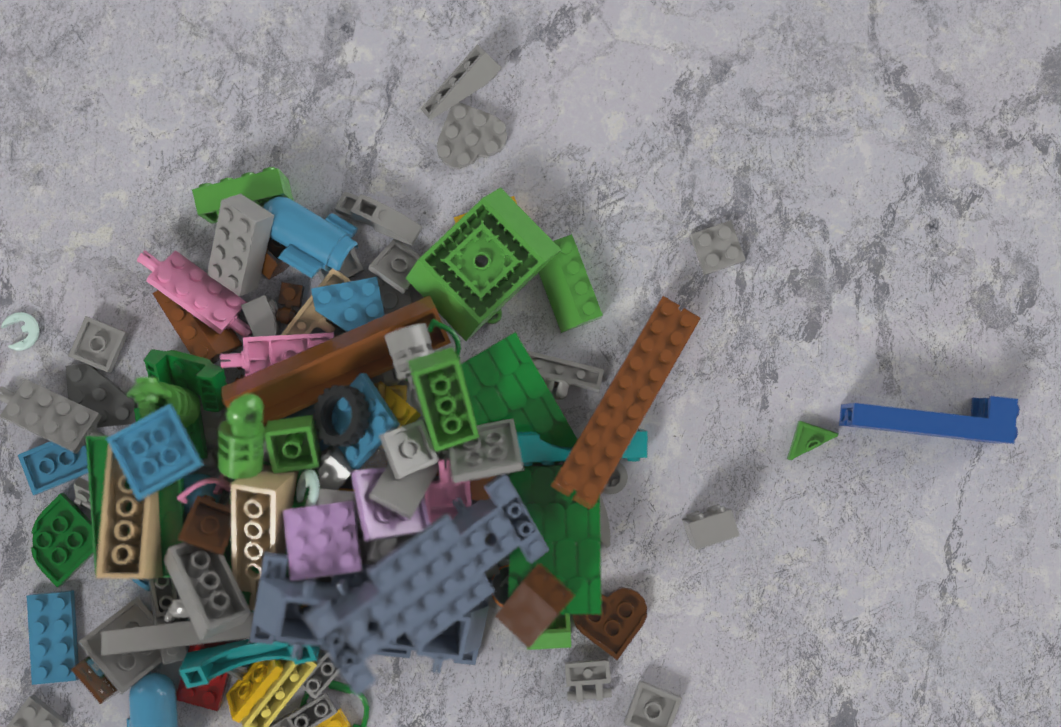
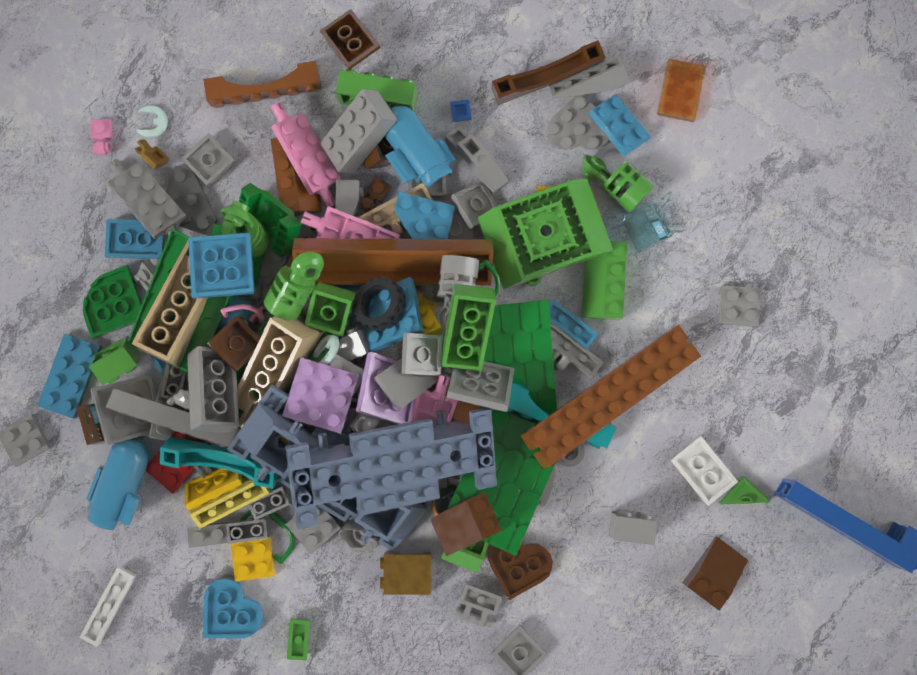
camera: 25 degrees right, 0 degrees up
(37, 367) = (152, 156): none -> pearl gold plate
(91, 601) = (114, 361): none -> bright green brick
(158, 216) = (302, 79): none -> dark orange arch
(189, 152) = (349, 39): none -> reddish brown slope
(340, 175) = (460, 111): none -> blue plate
(386, 123) = (518, 85): none -> reddish brown arch
(389, 675) = (316, 535): none -> light grey brick
(421, 667) = (351, 534): none -> light grey hair
(499, 682) = (406, 574): none -> pearl gold panel
(510, 117) = (619, 125): none -> dark azure plate
(534, 176) = (616, 182): none -> bright green cylinder
(552, 345) = (571, 324): none -> dark azure plate
(558, 53) = (681, 90): none -> clear orange plate
(586, 209) = (646, 227): none -> clear light blue slope
(756, 434) = (703, 470): none -> white plate
(817, 534) = (716, 573): none -> reddish brown slope

